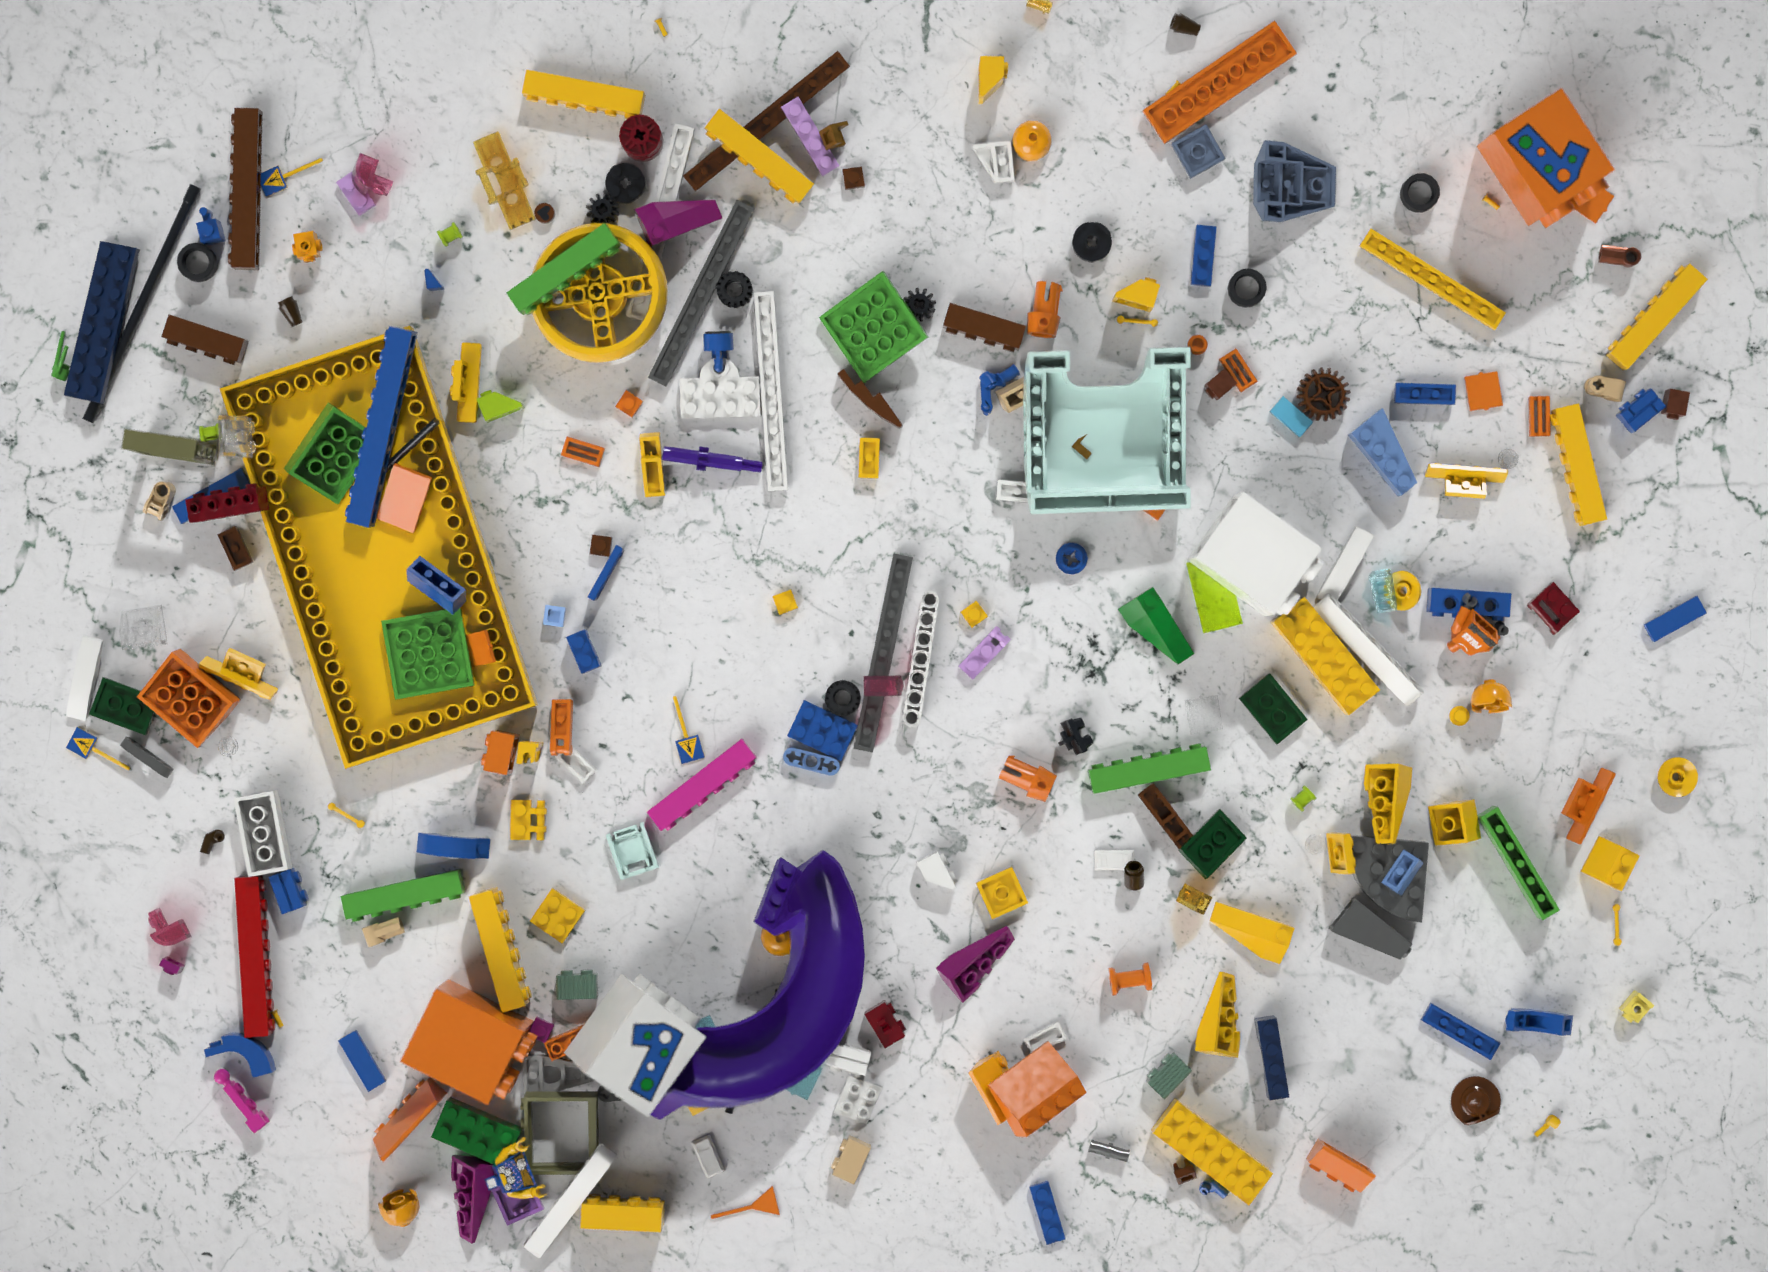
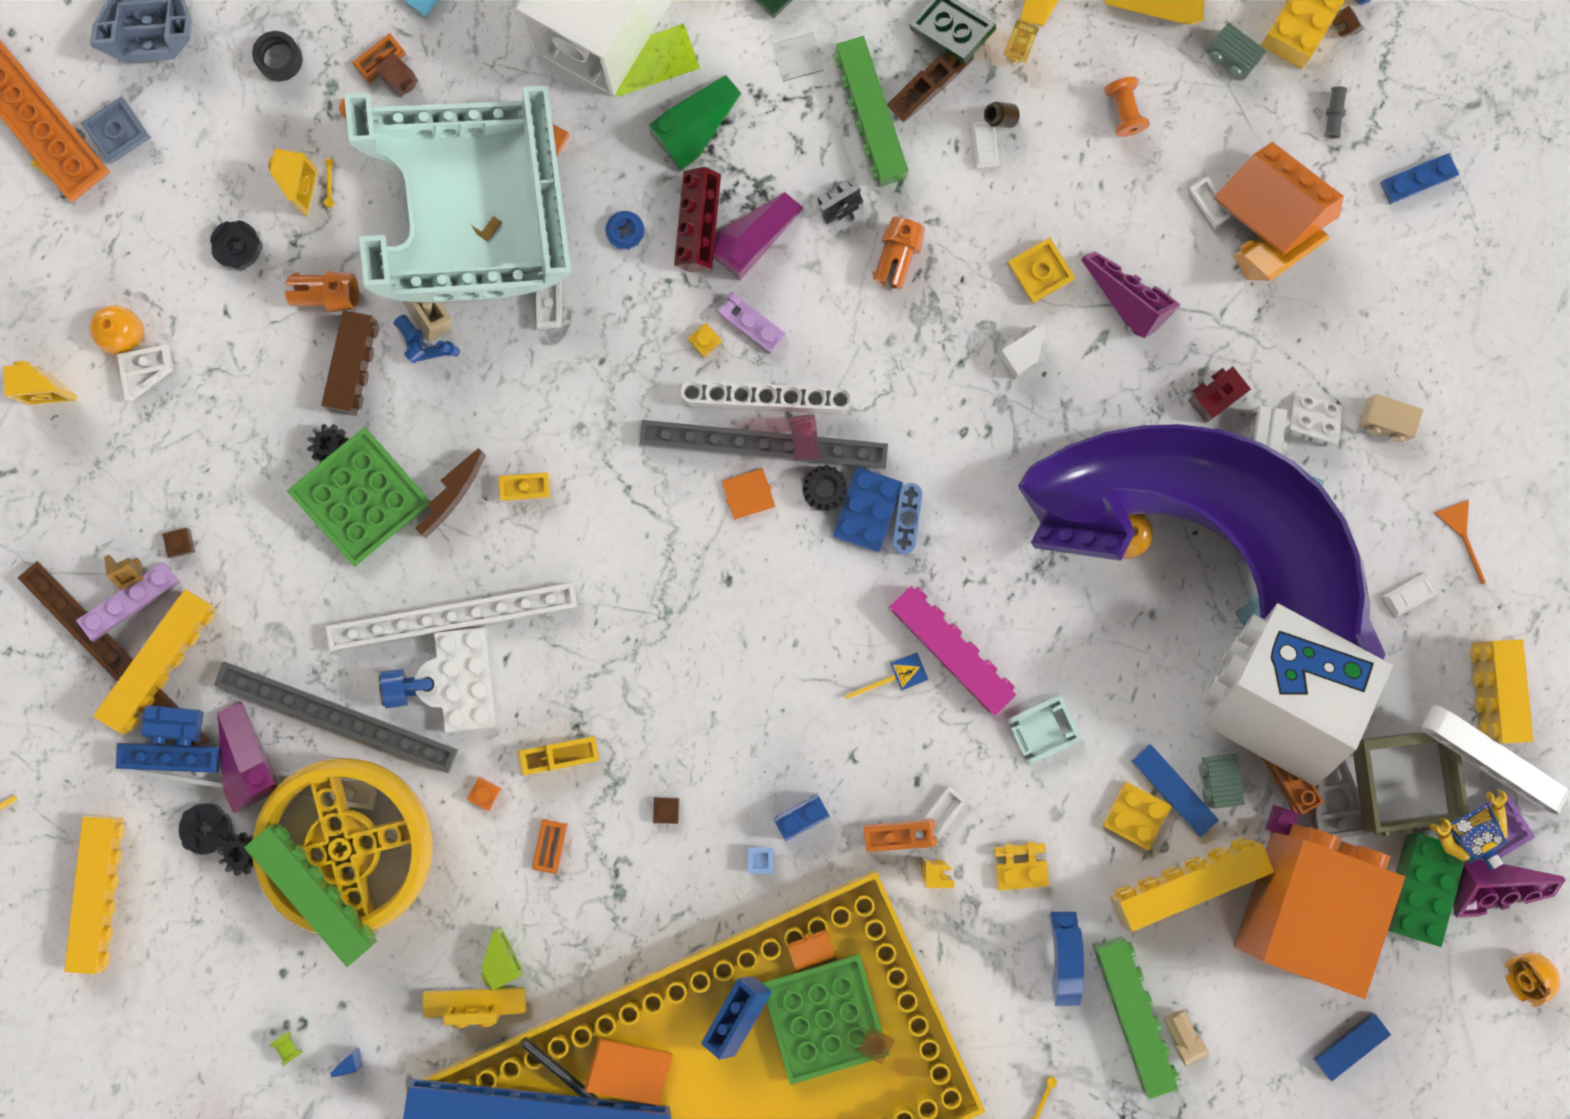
camera: 100 degrees left, 5 degrees down
(403, 690) = (876, 1045): none -> clear orange plate
(409, 1116) = (1427, 983): orange slope -> none
(500, 752) = (941, 910): orange brick -> none
(509, 178) = (209, 978): clear yellow piece -> none
(544, 213) = (250, 928): reddish brown tile -> none
(574, 948) = (1175, 790): none -> blue tile
(606, 572) = (699, 799): blue tile -> none
(648, 147) = (157, 814): dark red wheel -> none
(682, 160) = (167, 757): none -> blue tile
(707, 459) = (544, 691): dark purple piece -> none
(708, 166) = (172, 724): none -> blue brick
(737, 277) = (313, 676): black tyre -> none
(785, 602) = (713, 571): yellow plate -> none
(845, 636) = (748, 494): none -> orange piece
(1055, 658) = (748, 238): none -> magenta wedge
(1071, 618) = (697, 219): none -> dark red brick
(1203, 255) = (243, 112): blue plate -> none

